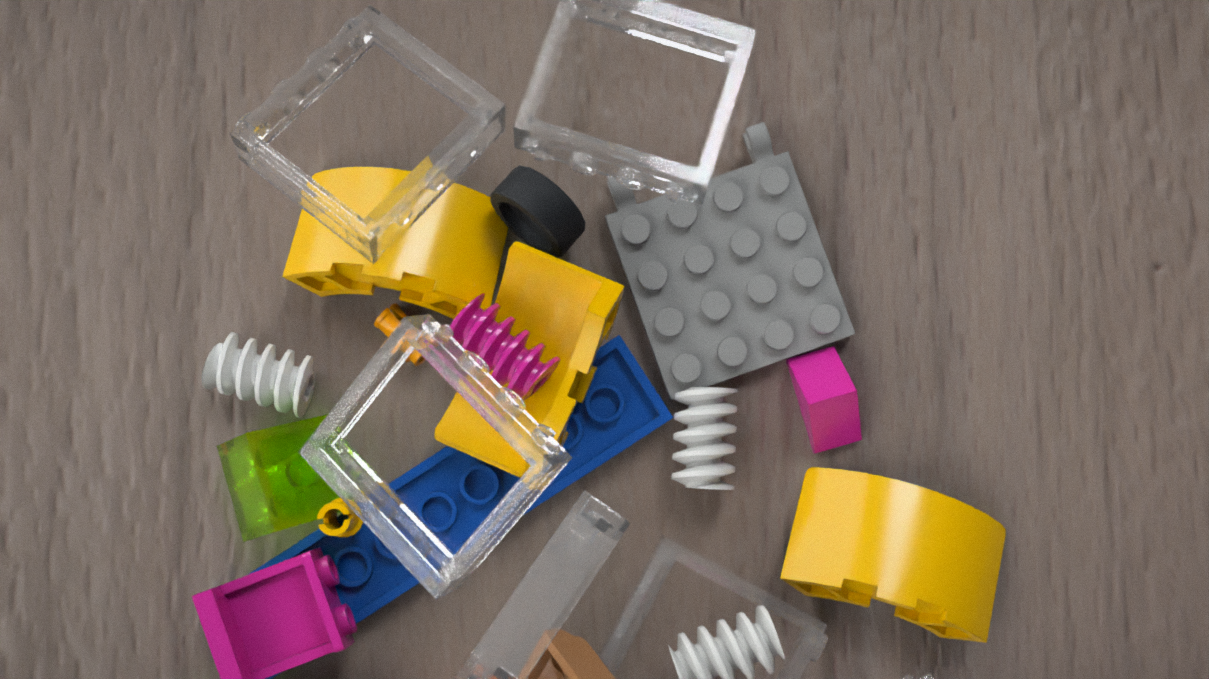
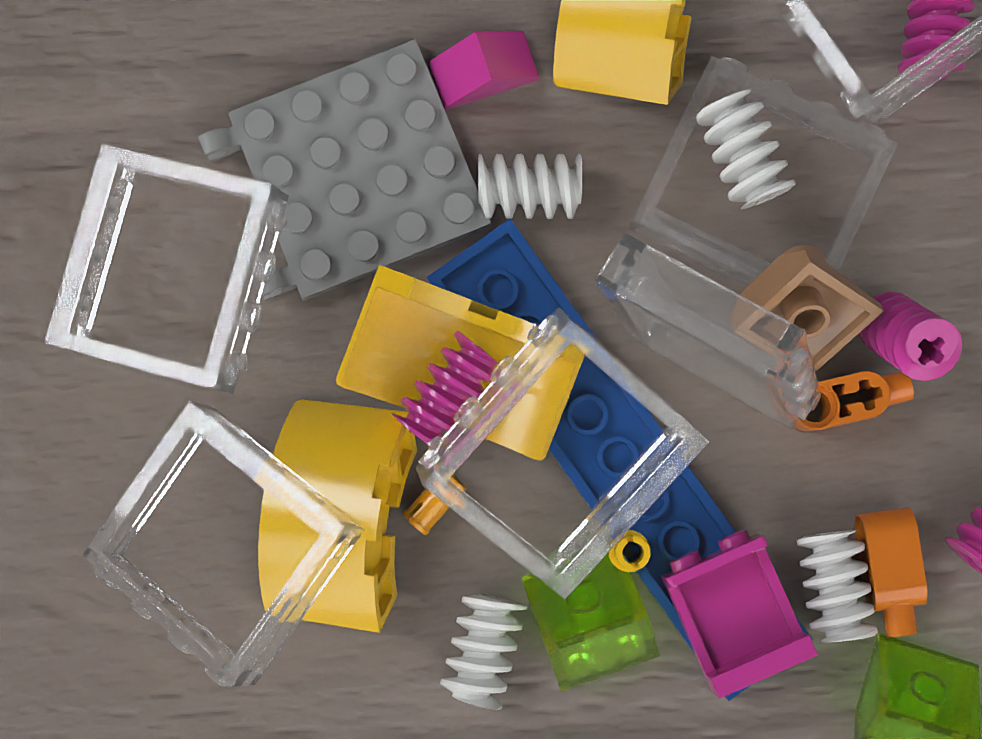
camera: 95 degrees left, 0 degrees up
(538, 211) = (301, 364): black tyre -> none

